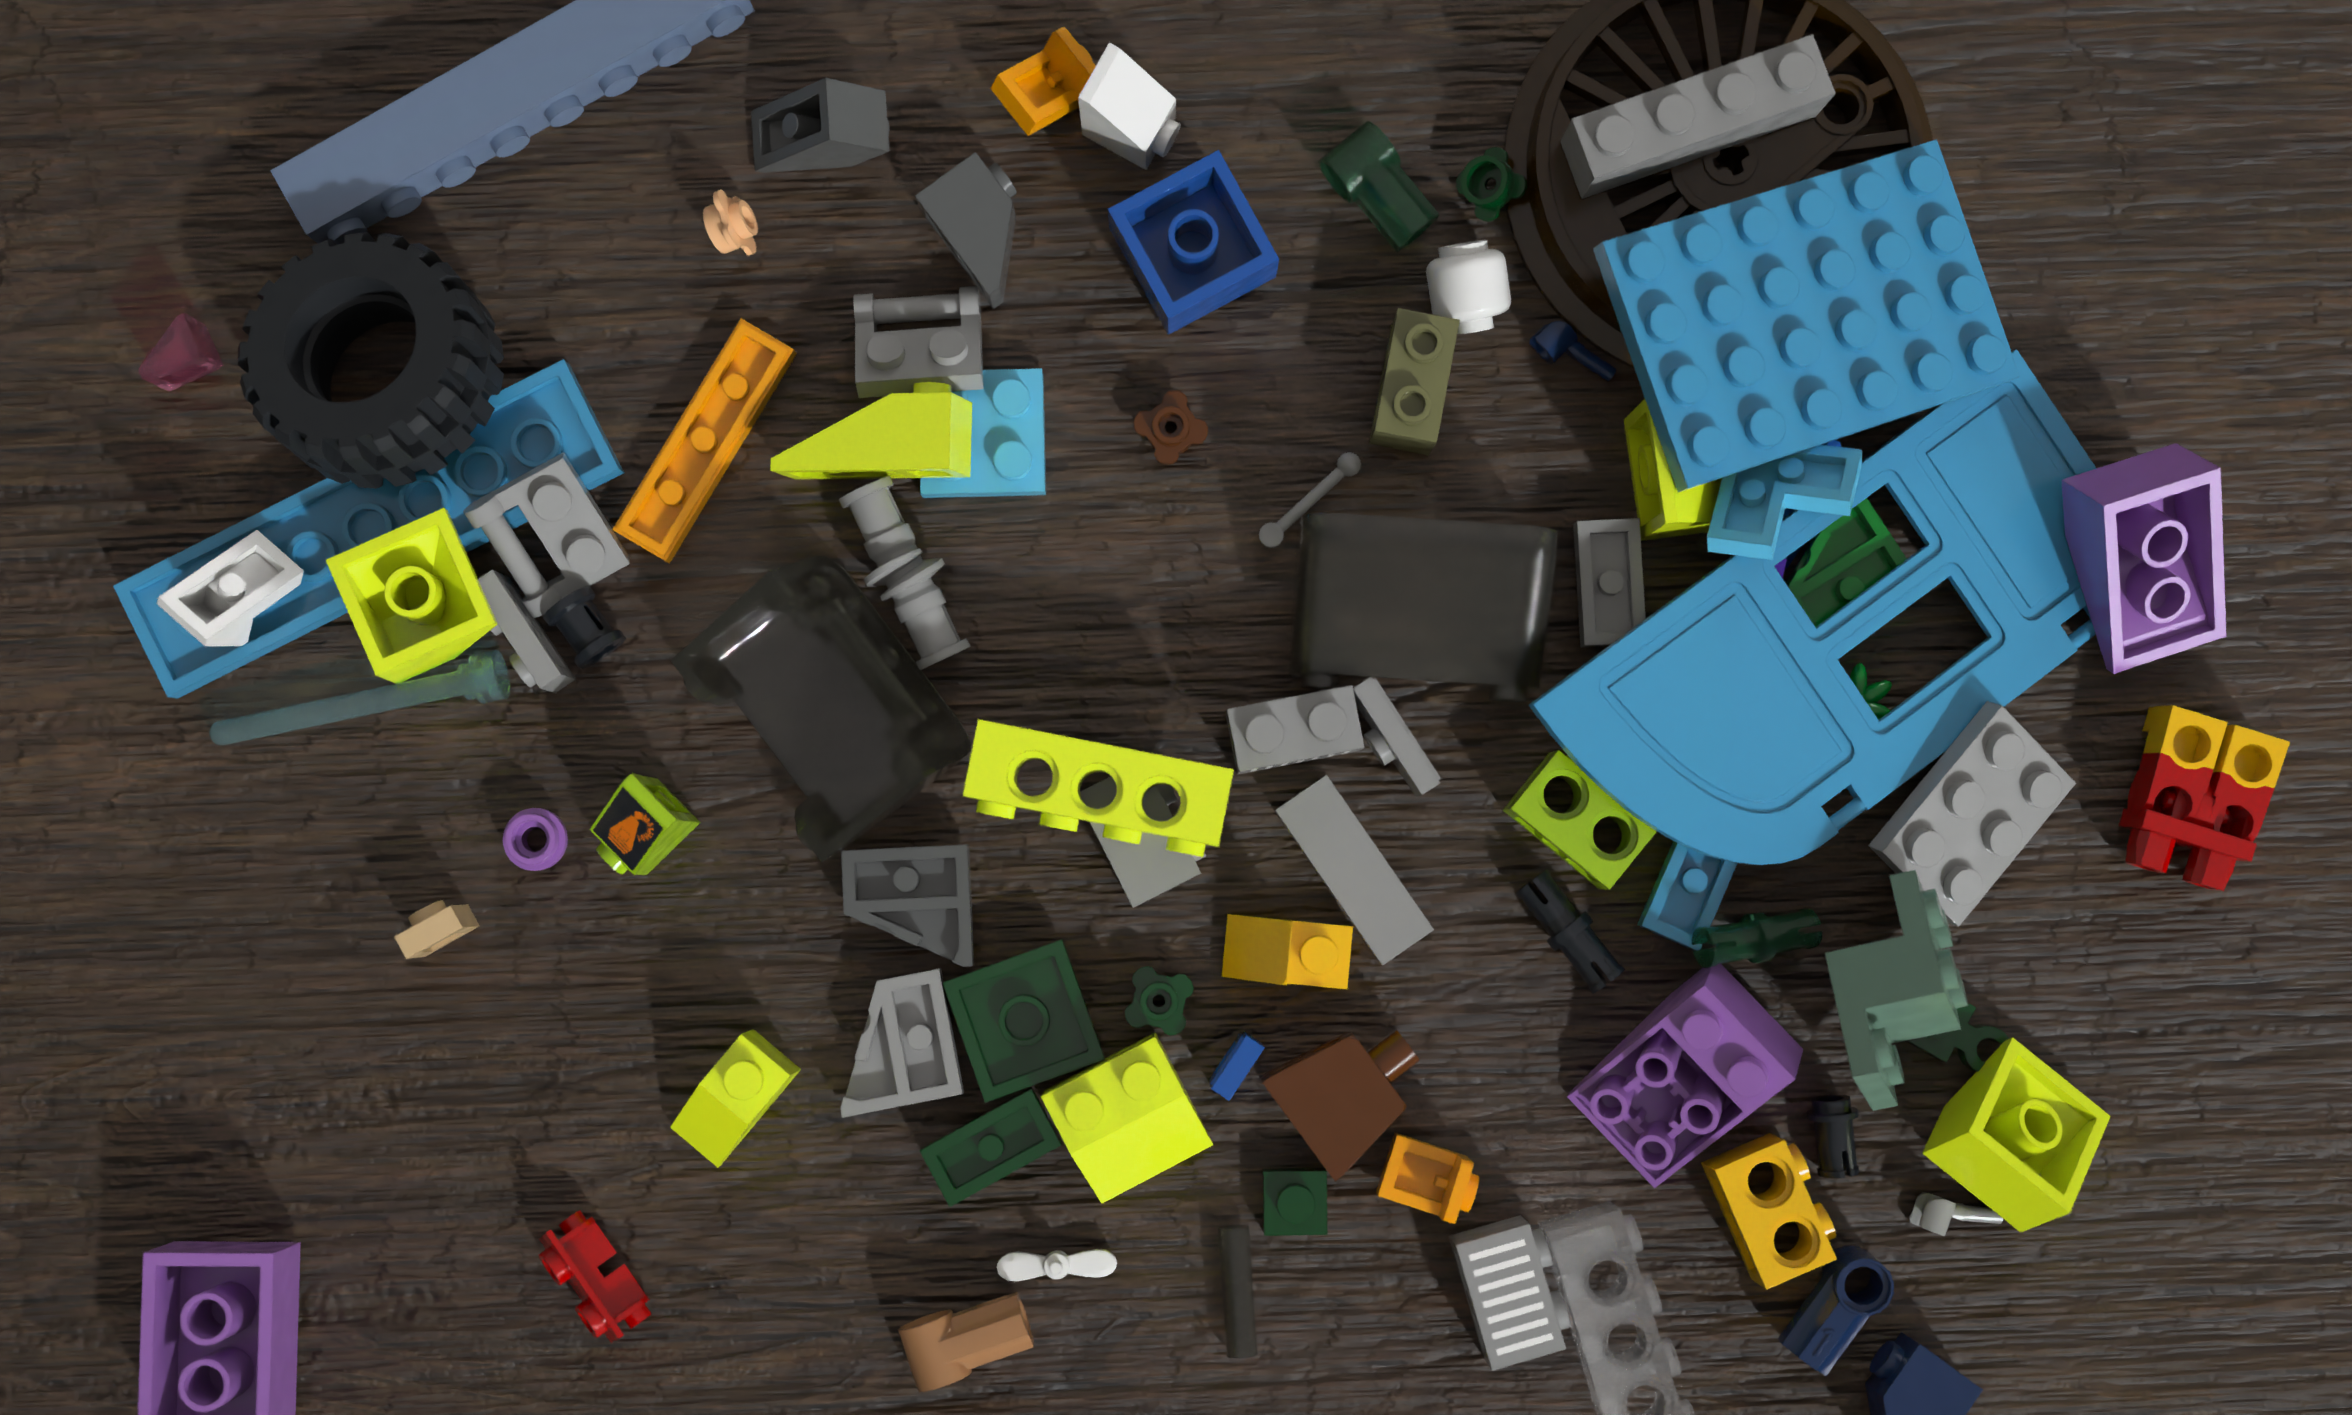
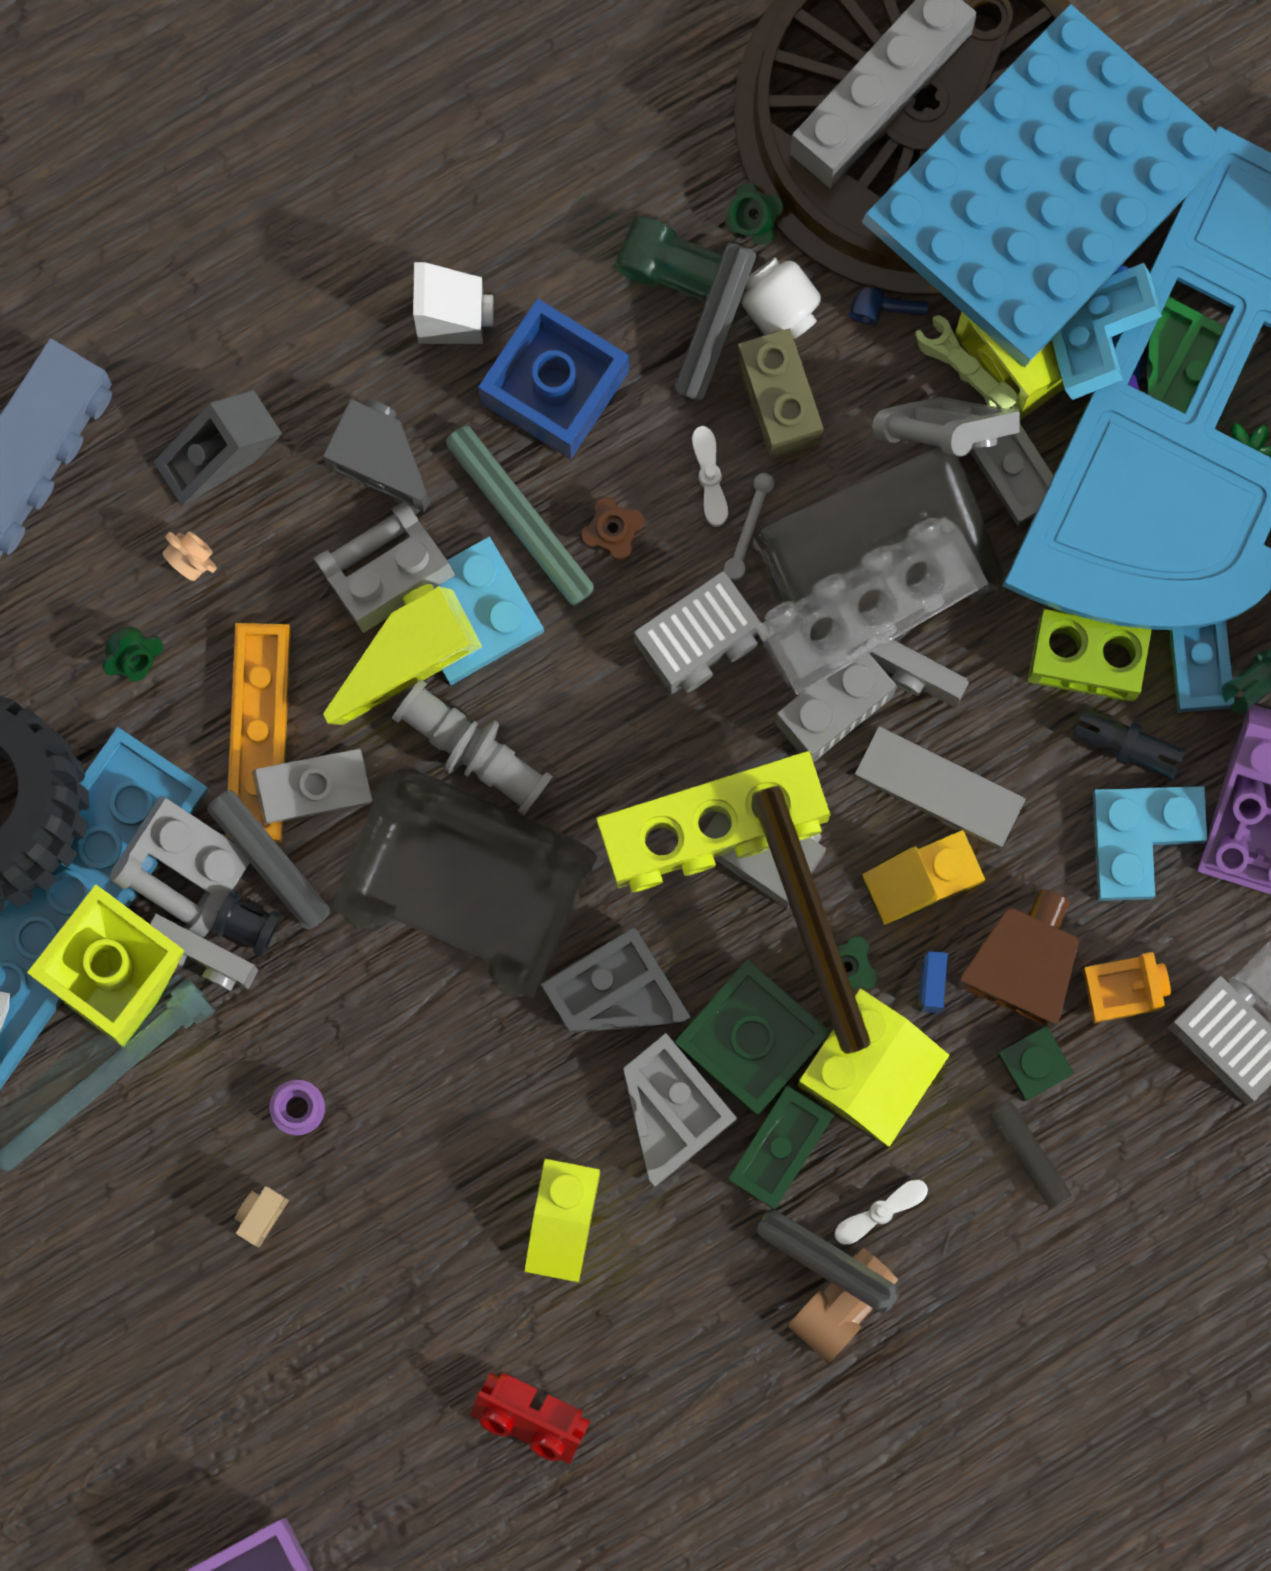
camera: 25 degrees left, 5 degrees down
(619, 292) = (131, 653): none -> dark green plate
(639, 575) = (268, 859): none -> dark grey axle
(641, 825) = (377, 1048): slope -> none
(724, 525) = (311, 786): none -> light grey plate
(971, 1293) = (828, 1261): none -> dark grey axle
(1045, 83) = (373, 317): light orange bracket -> none
(1085, 363) = (519, 515): none -> sand green axle
(1138, 944) = (811, 919): none -> dark brown axle
(1196, 582) = (698, 634): none -> light grey brick
(1298, 427) = (709, 476): none -> white piece
(1389, 271) = (715, 321): none -> dark grey axle
(1411, 672) = (949, 578): none -> clear brick
(1526, 1012) = (1128, 827): none -> medium azure plate
(1565, 506) = (946, 424): none -> light grey plate
(1634, 506) = (949, 351): none -> yellowish green piece

